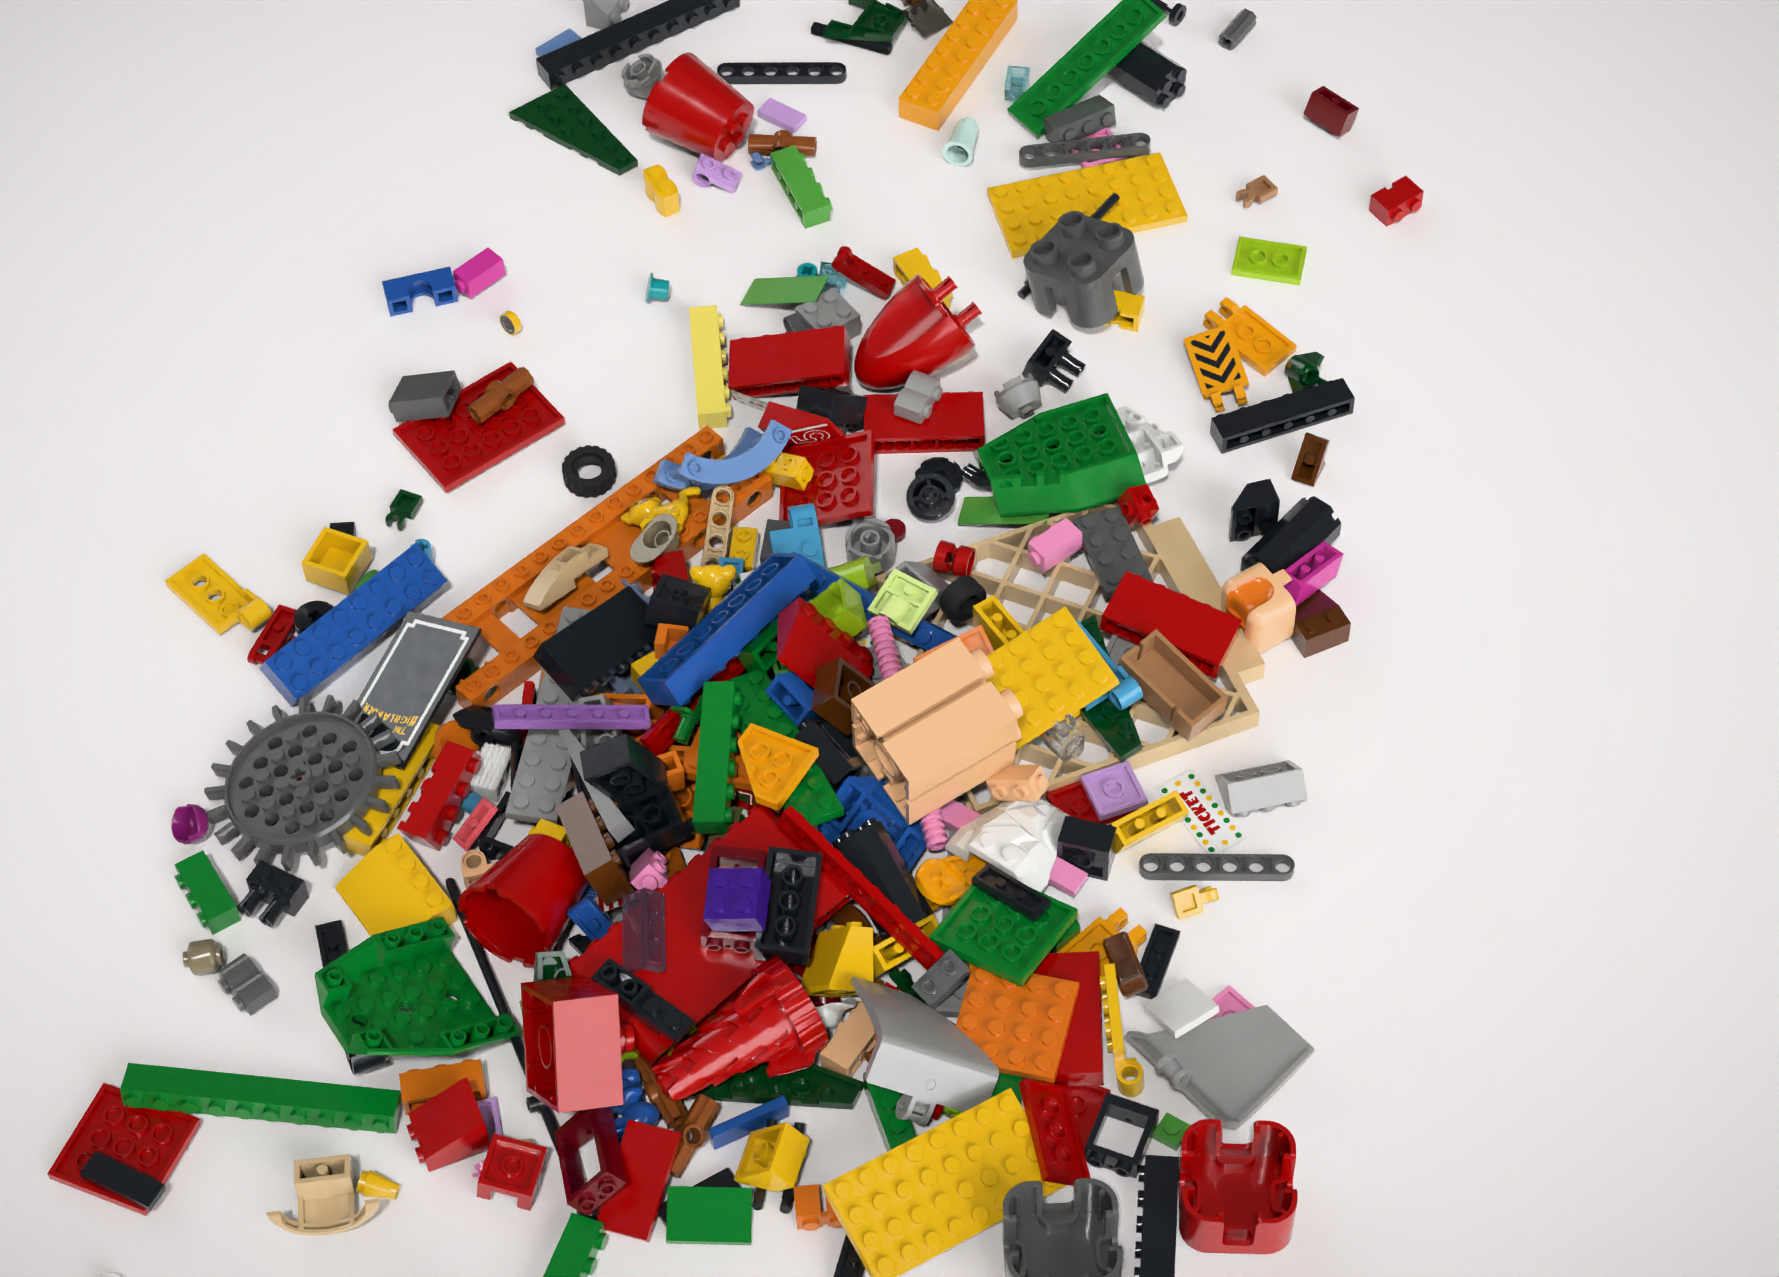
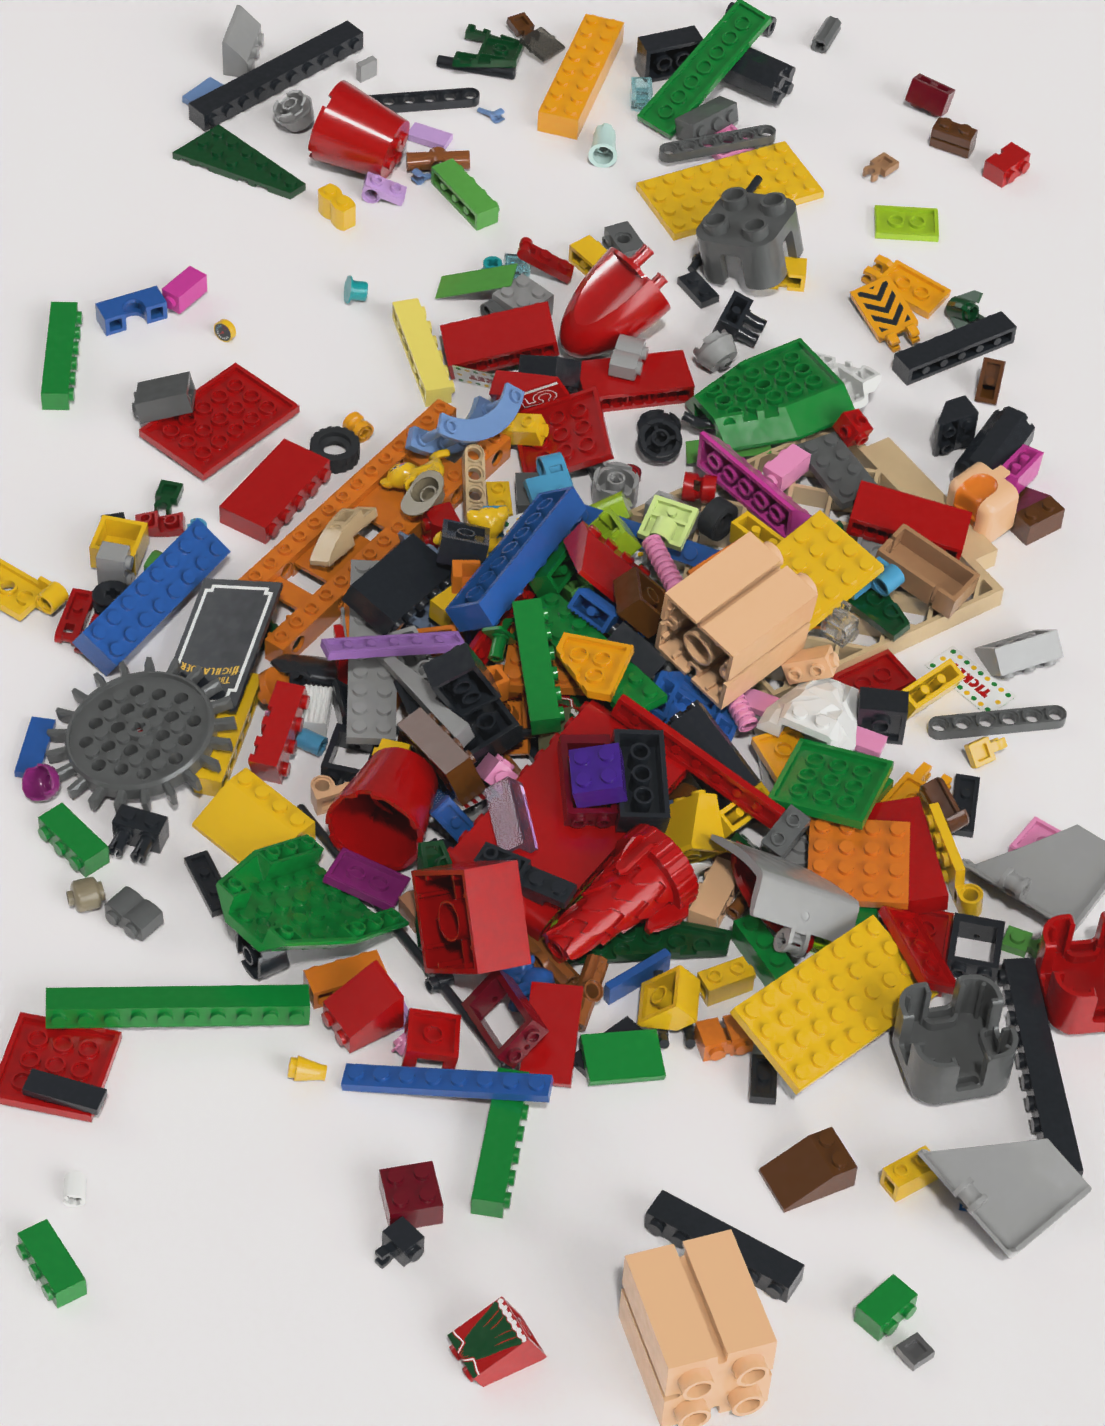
camera: 15 degrees left, 5 degrees down
(197, 778) = (34, 744): none -> blue tile
(323, 583) = (114, 563): none -> light grey brick
(325, 1198) = (262, 1083): tan piece -> none
(334, 336) = (60, 356): none -> green brick
(385, 540) = (163, 526): none -> red slope
(475, 823) = (315, 753): coral slope -> none
(490, 974) = (366, 879): none -> magenta tile
(500, 395) = (236, 390): dark orange piece -> none
(514, 514) = (275, 491): none -> red brick
(516, 1223) = (447, 1082): none -> blue plate
(618, 446) = (361, 428): none -> light orange wheel
(734, 32) = (366, 69): none -> light grey tile
(842, 1140) = (726, 981): none -> yellow brick
(858, 96) = (495, 116): none -> medium blue hand
(940, 883) = (762, 754): light orange tile -> none
(954, 260) = (623, 238): none -> dark grey brick
(1009, 561) = (749, 486): none -> dark pink slope
(1011, 892) = (830, 753): black tile -> none
(1022, 319) = (698, 289): none -> black plate
(1051, 38) = (665, 51): none -> black brick
(1113, 790) = (891, 666): lavender tile -> none
(1181, 1008) = (999, 839): white tile -> none
(1345, 163) = (953, 137): none -> reddish brown brick

